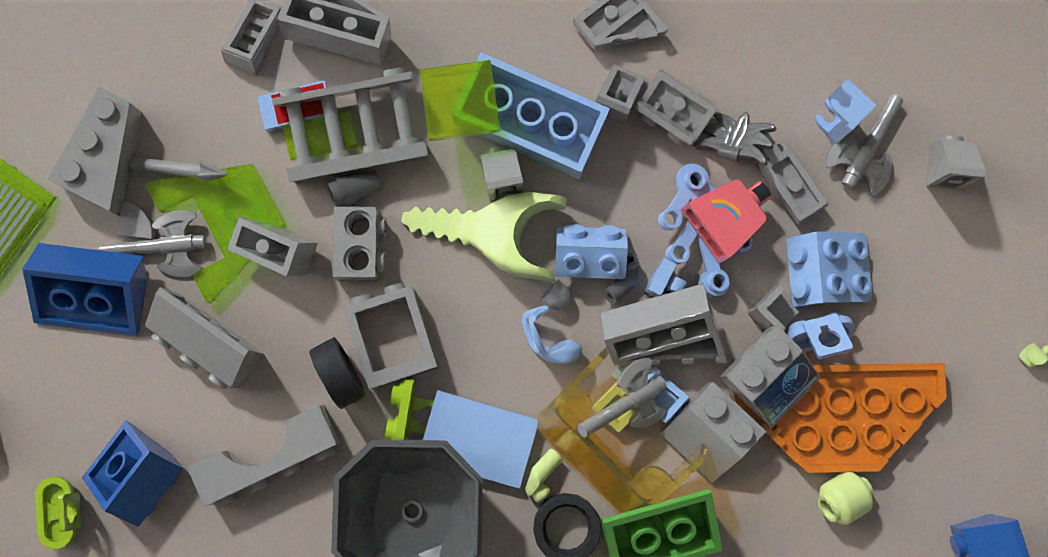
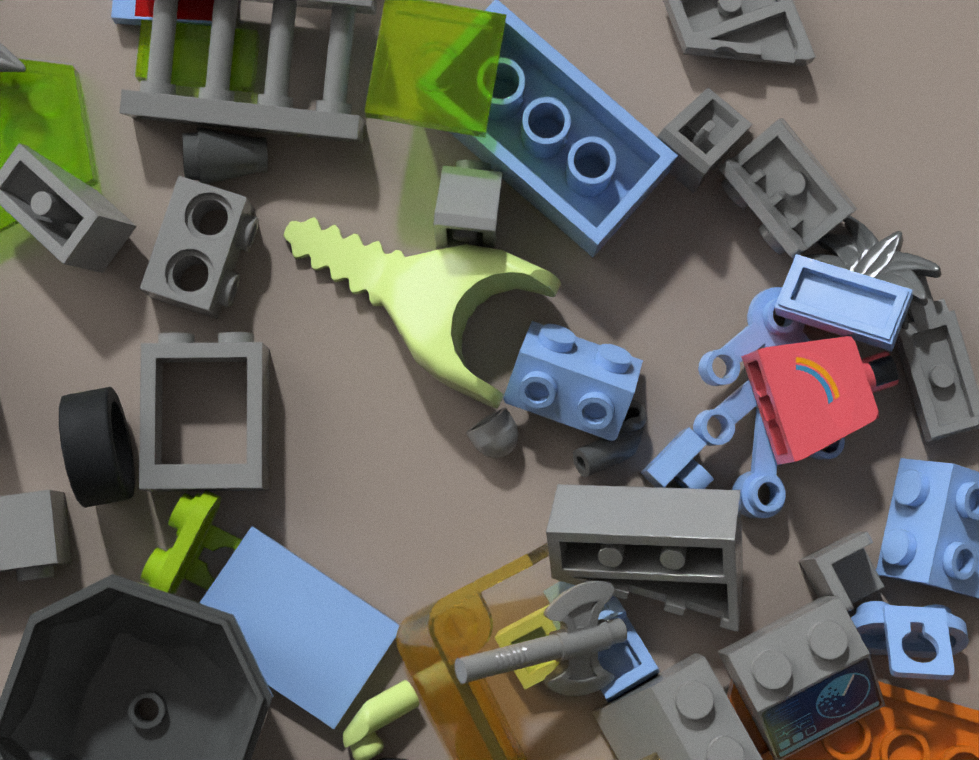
camera: 15 degrees right, 0 degrees up
(562, 352) = (472, 529): light blue piece -> none
(727, 161) = (844, 302): none -> light blue tile

